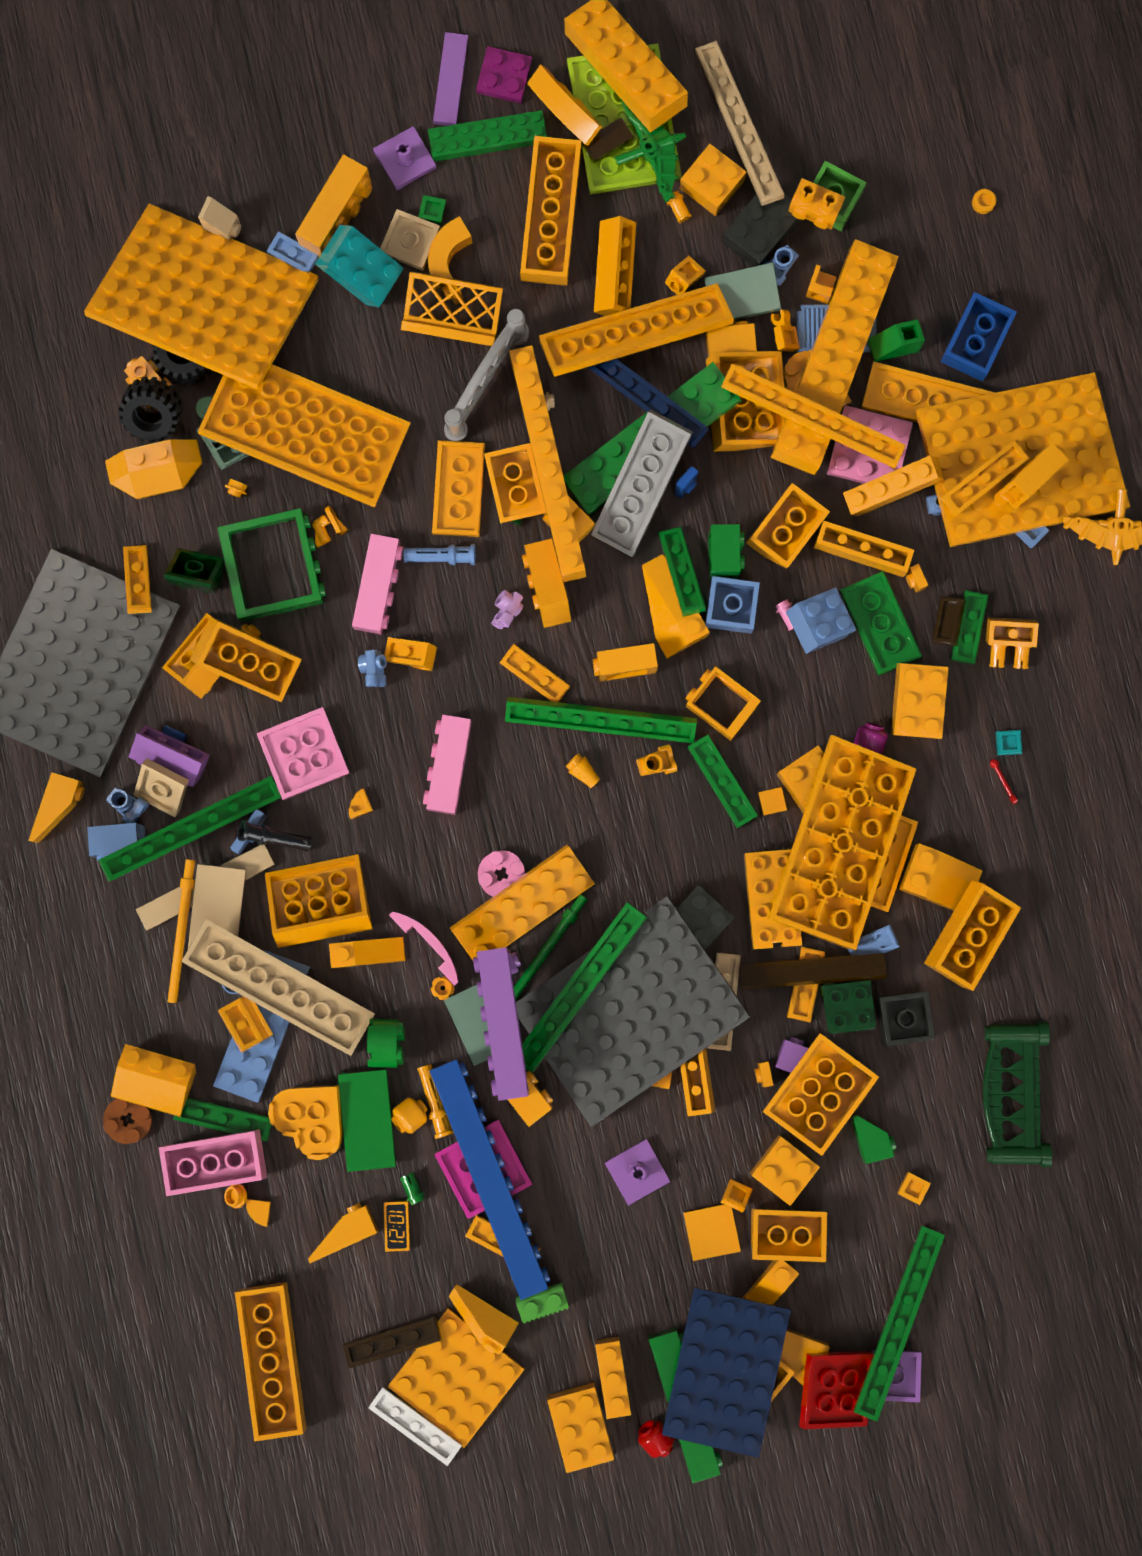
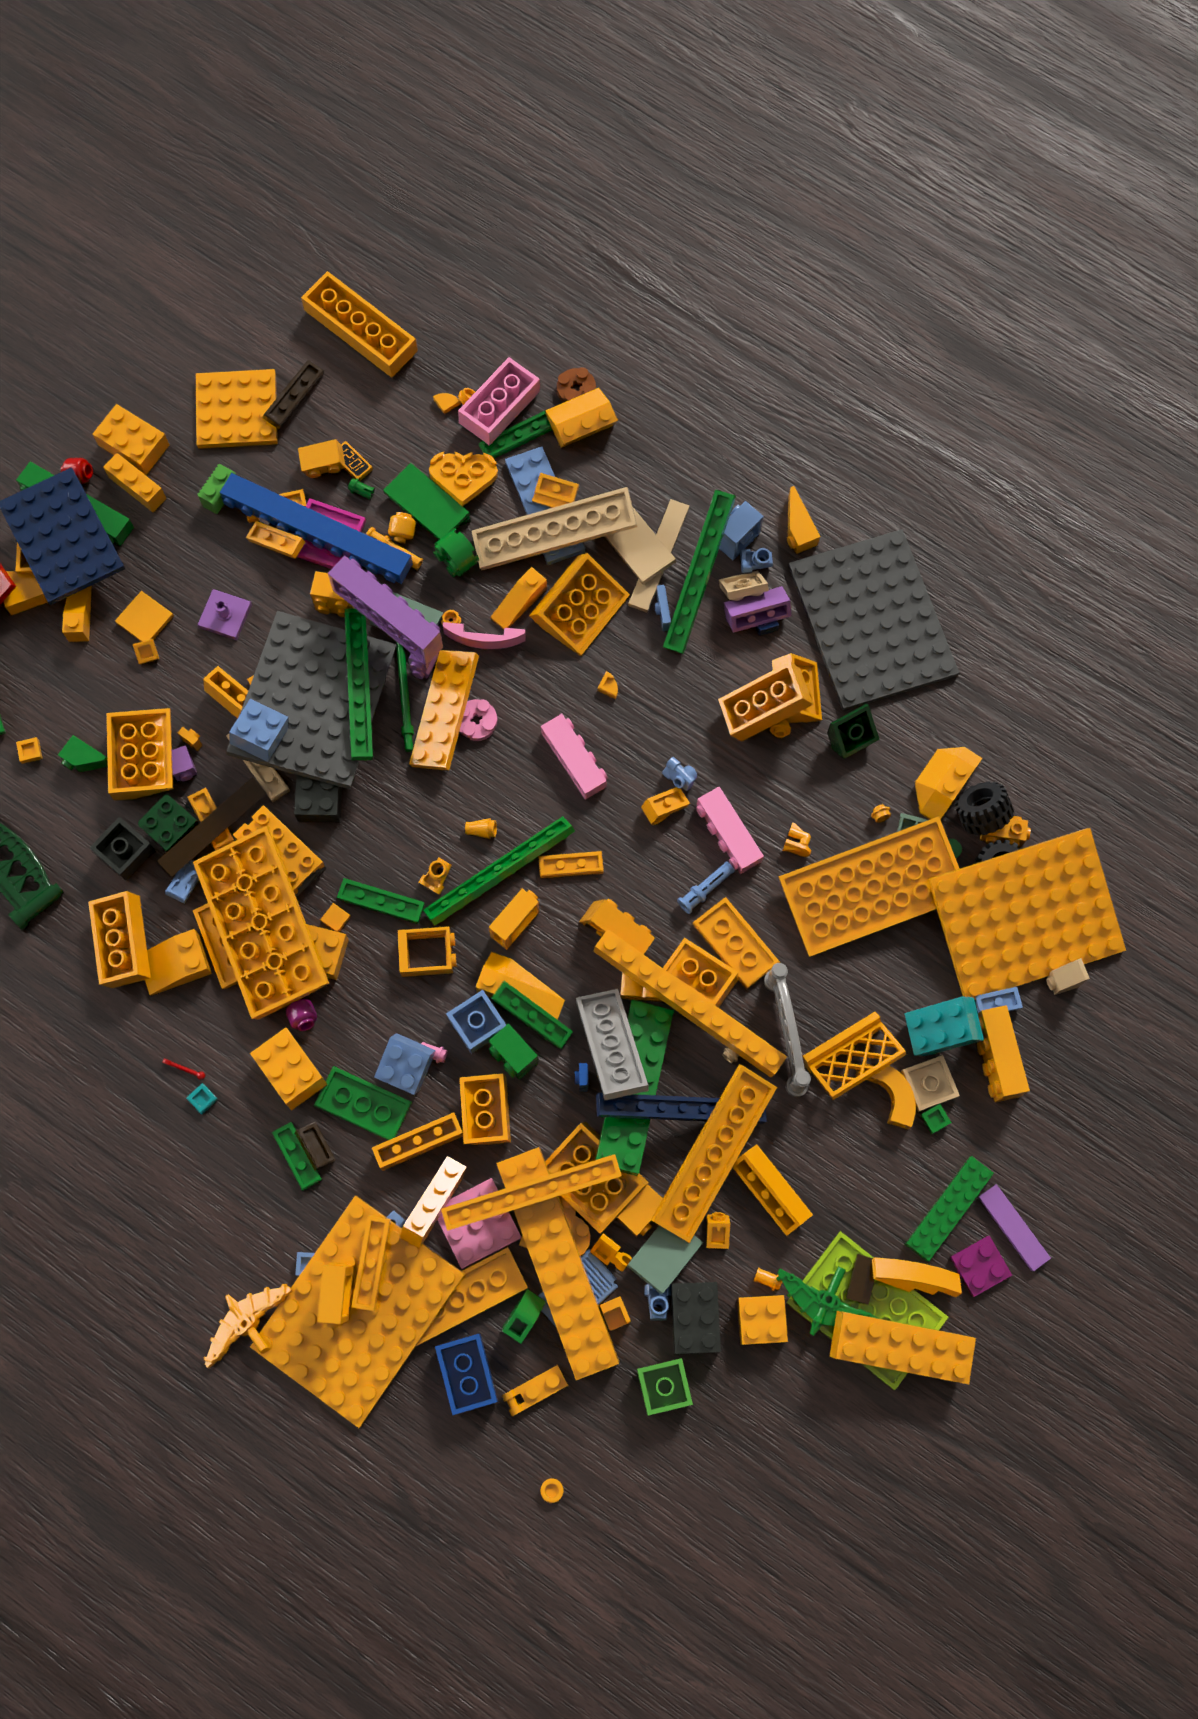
camera: 135 degrees right, 10 degrees down
(137, 579) = (885, 699): light orange tile -> none
(187, 884) = (670, 543): light orange bar -> none
(263, 834) = (650, 609): black pin -> none
(303, 753) = (675, 684): bright pink plate -> none
(313, 566) = (828, 757): green window -> none
(350, 1229) = (377, 437): light orange slope -> none
(404, 158) = (990, 1140): medium lavender tile -> none
(414, 1426) = (238, 361): white plate -> none
(423, 1248) = (321, 458): none -> light orange brick
(487, 1323) = (240, 449): light orange slope -> none
(509, 606) = (629, 892): lavender plate -> none
(533, 1202) = (275, 539): none -> light orange plate
(550, 210) = (854, 1190): light orange brick -> none
(707, 1007) = (258, 730): none -> medium blue brick
(739, 123) = (781, 1379): tan tile -> none
(784, 1170) = (126, 689): light orange brick -> none
(788, 1235) = (89, 651): light orange slope -> none
(816, 204) = (668, 1360): light orange brick -> none
(916, 578) = (363, 1154): light orange plate -> none
(933, 283) = (535, 1390): none -> light orange plate
(1011, 632) = (261, 1173): light orange brick -> none

